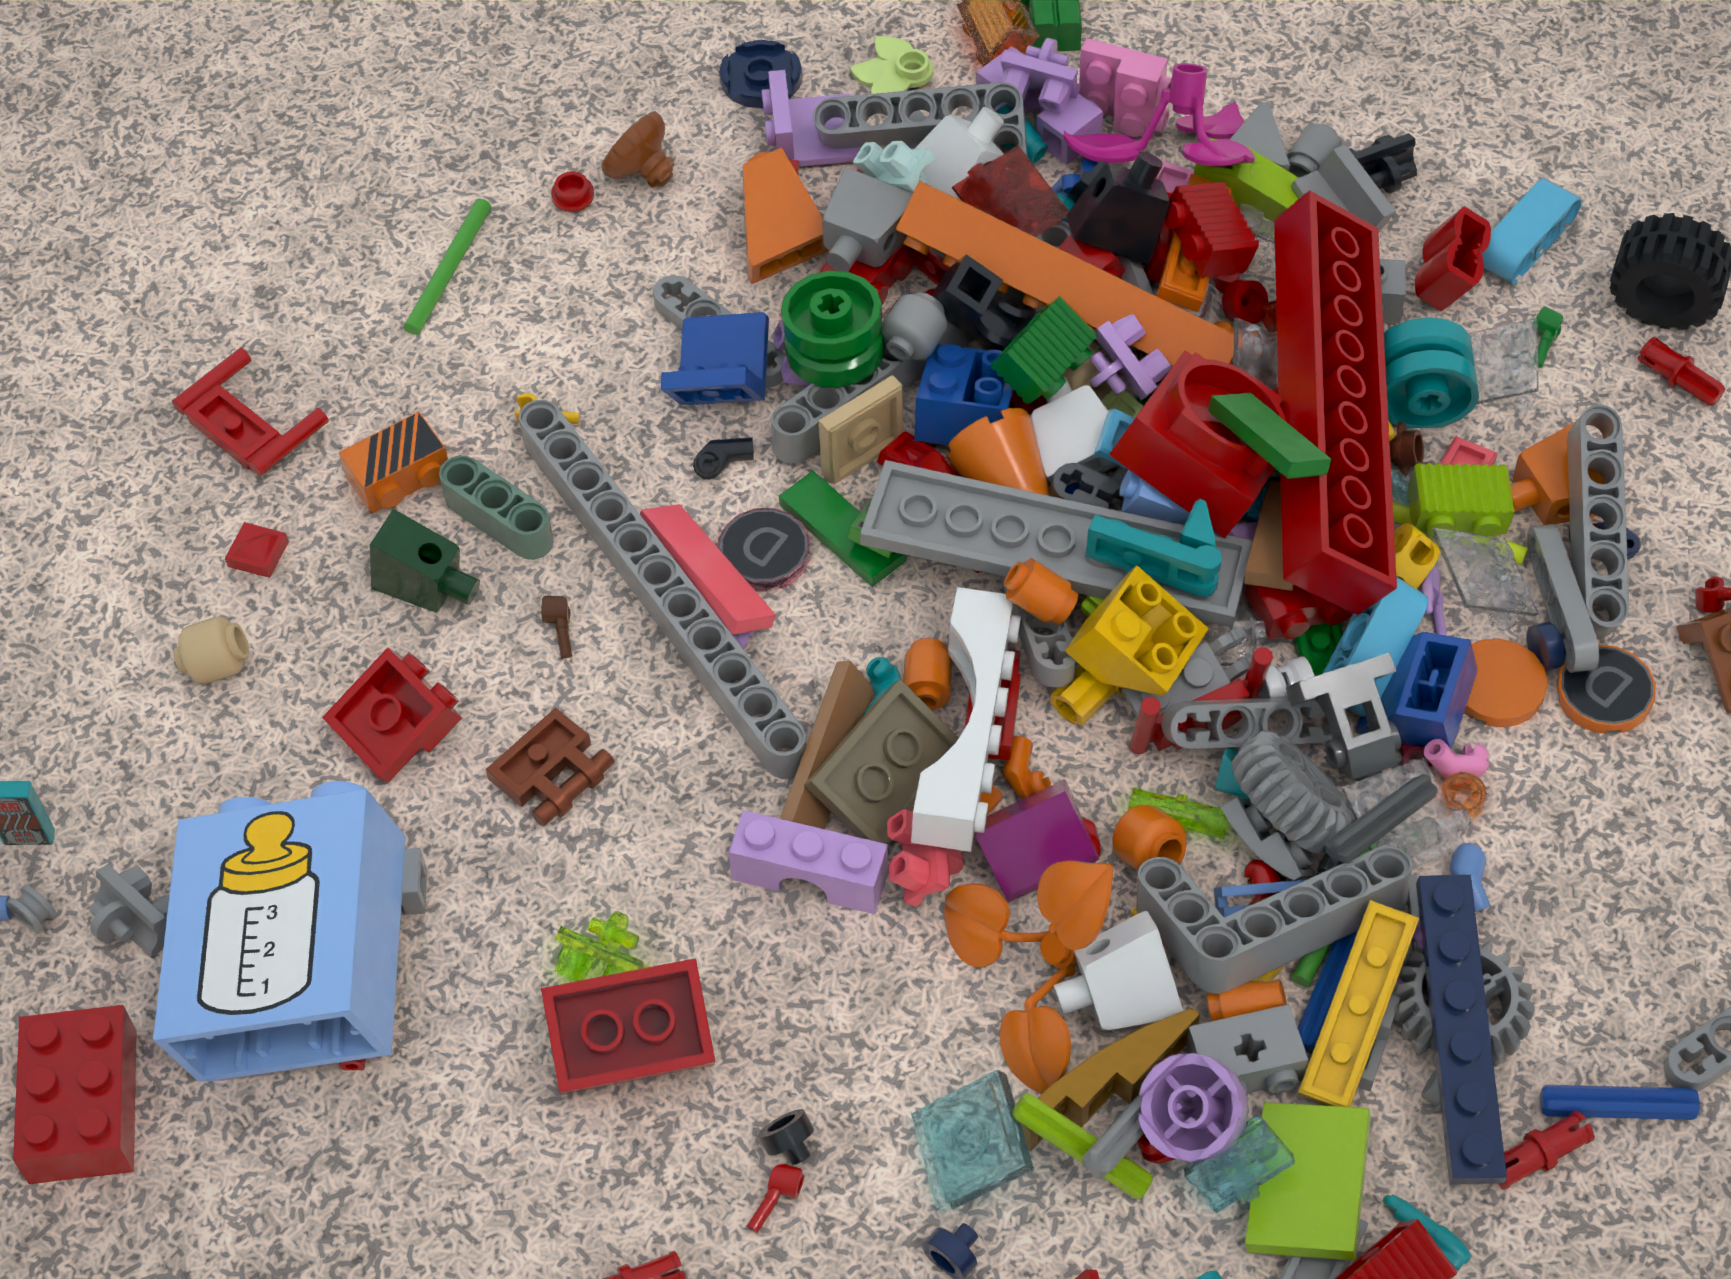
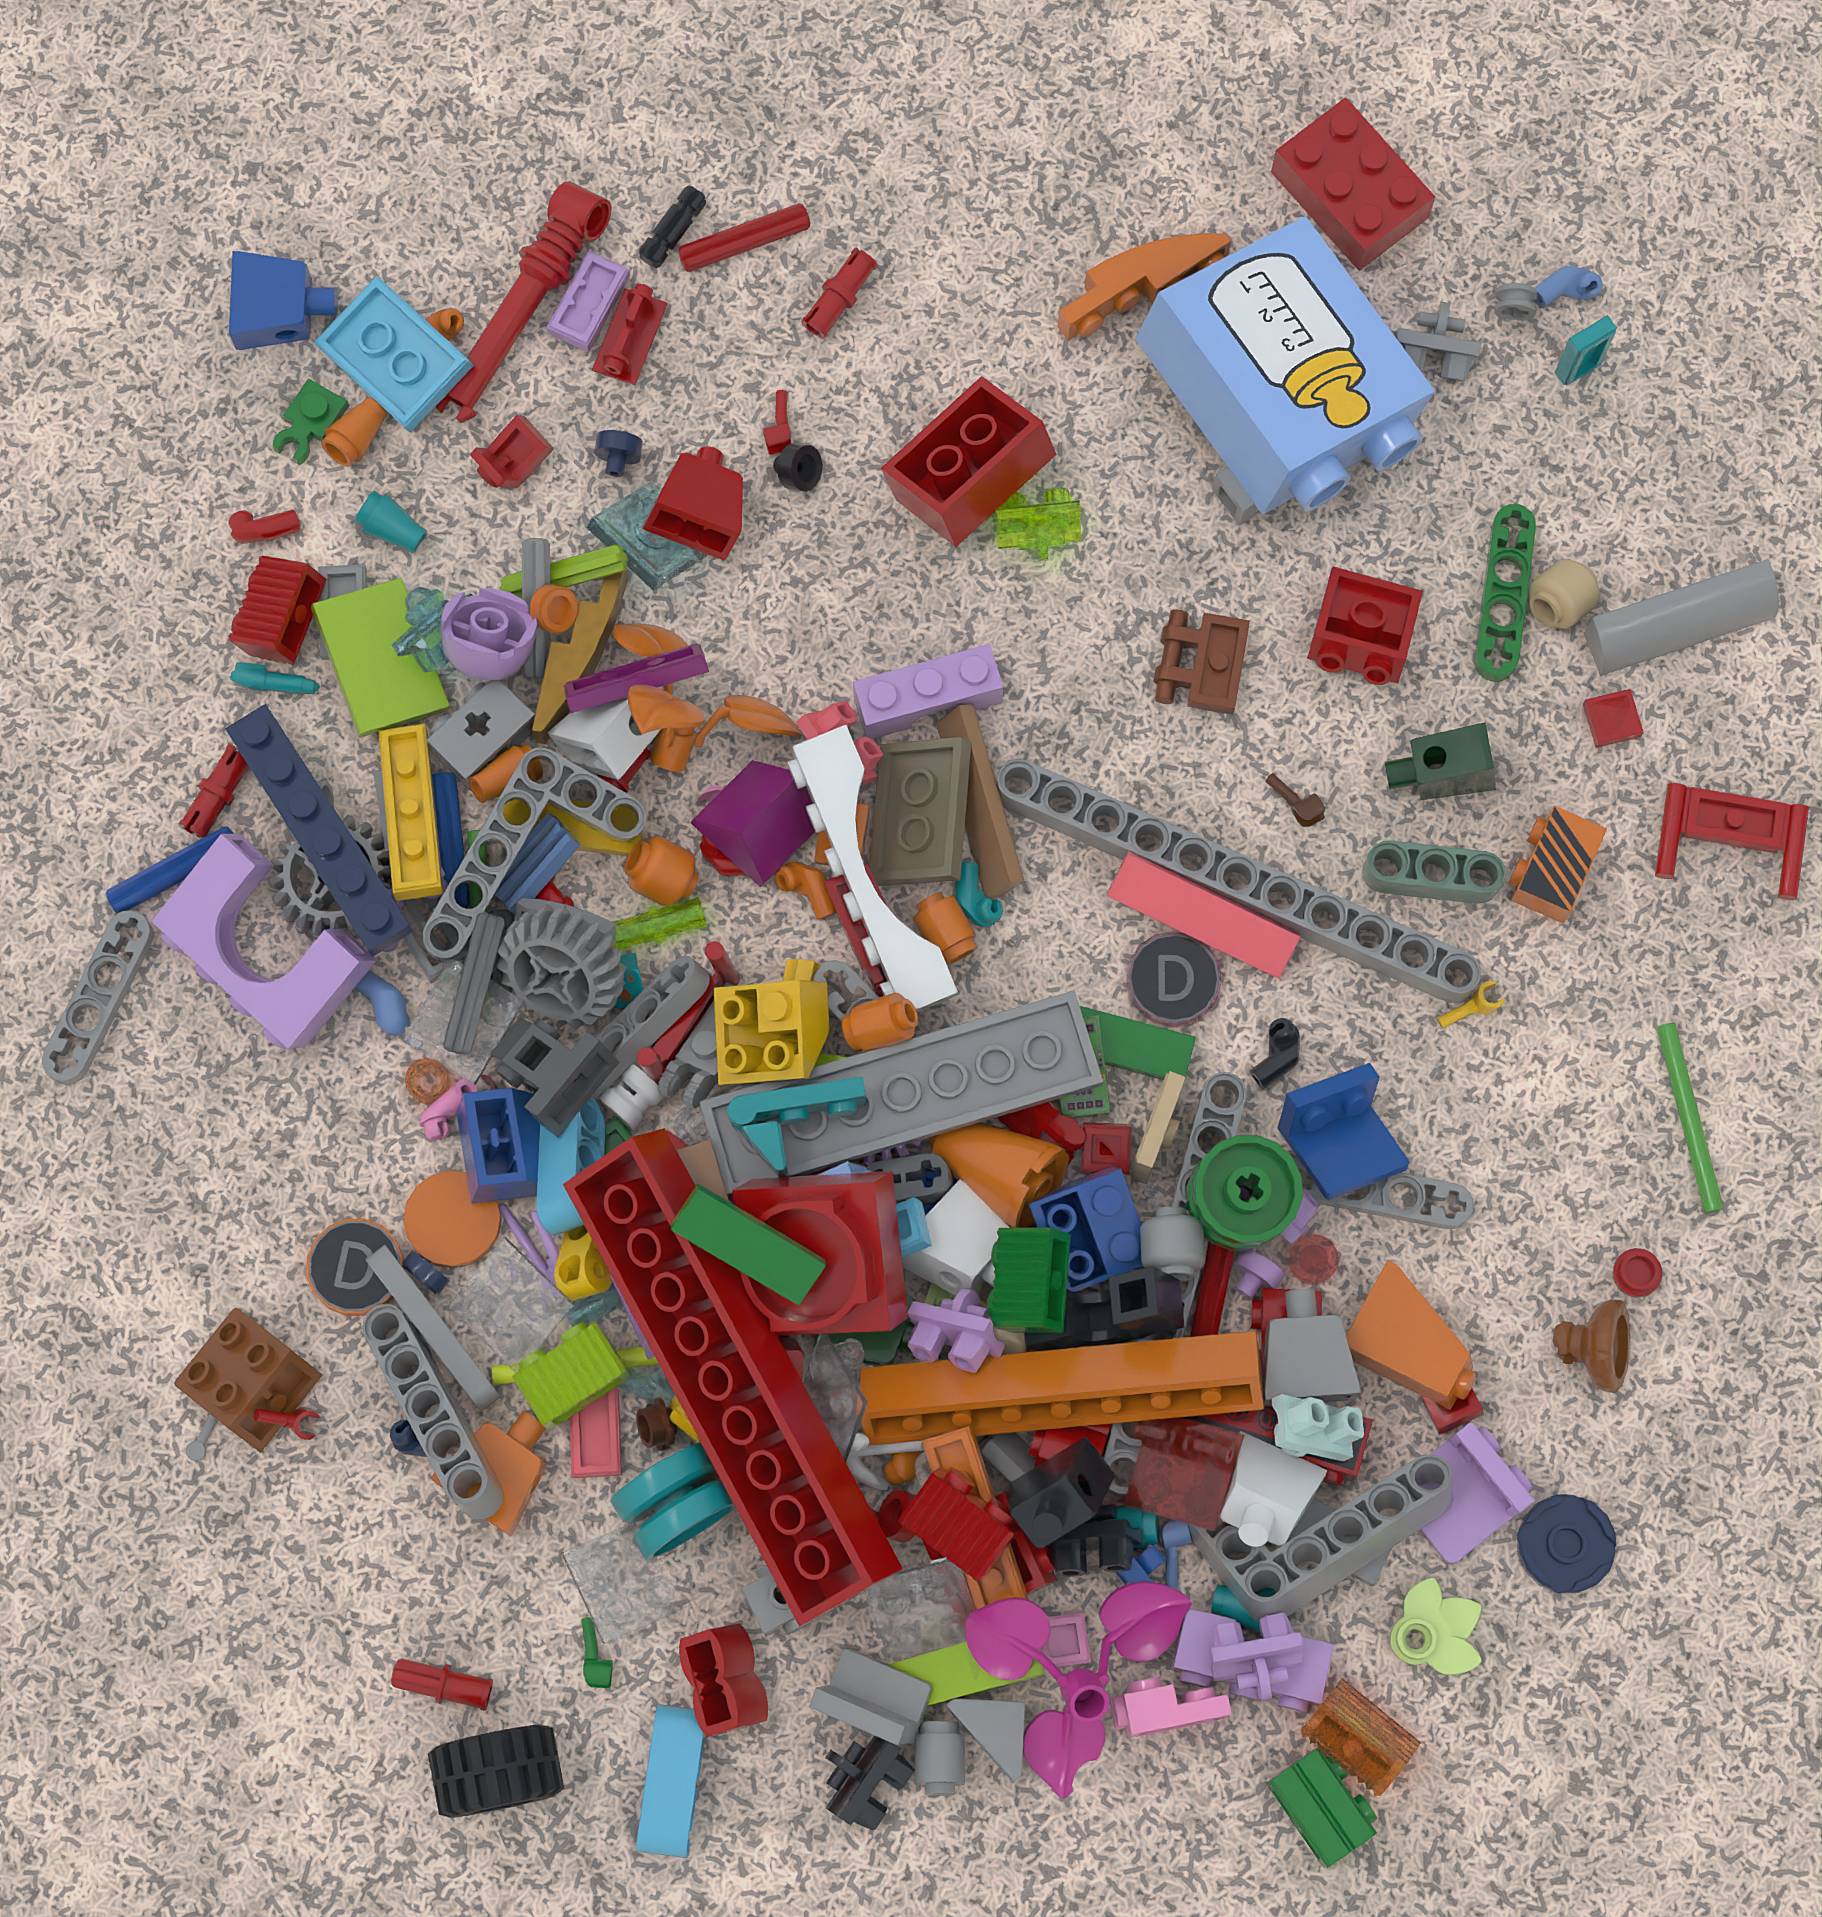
camera: 145 degrees right, 20 degrees up
(133, 585) = (1683, 617): none -> light grey brick
(249, 681) = (1507, 593): none -> green beam
(320, 1126) = (1142, 269): none -> orange slope
(906, 1141) = (700, 504): none -> red torso
(1076, 986) = (651, 671): none -> magenta tile
(1113, 1105) = (554, 608): none -> orange tile
(1567, 913) = (202, 924): none -> lavender arch

